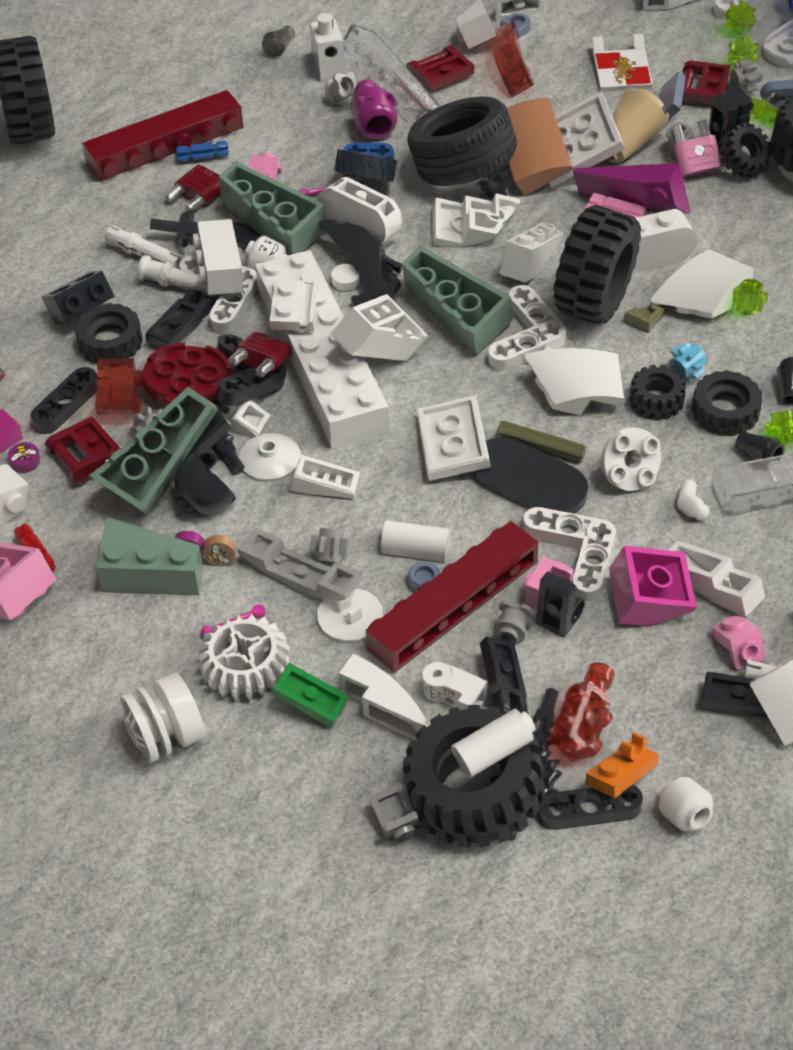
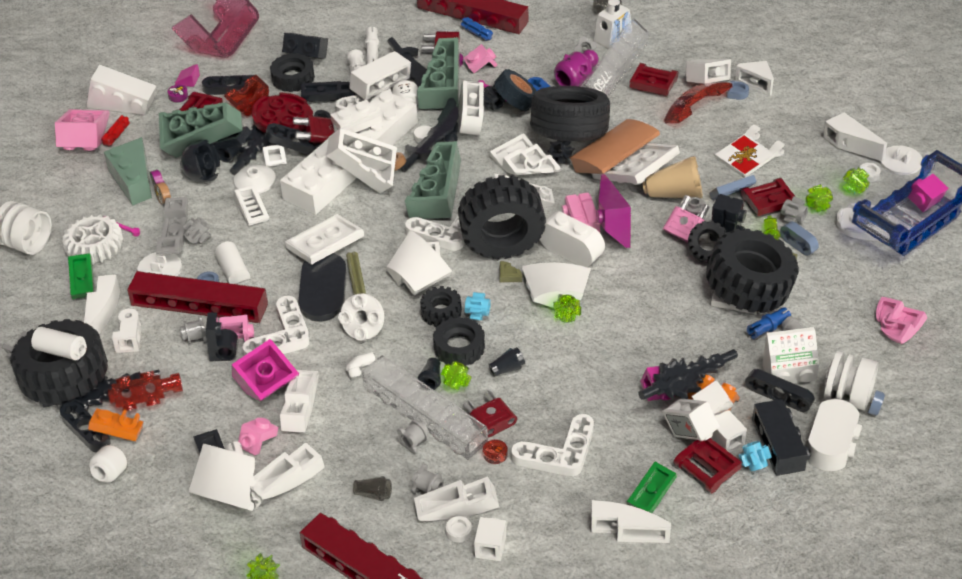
camera: 55 degrees right, 5 degrees down
(504, 675) = (150, 345): black hinge -> none

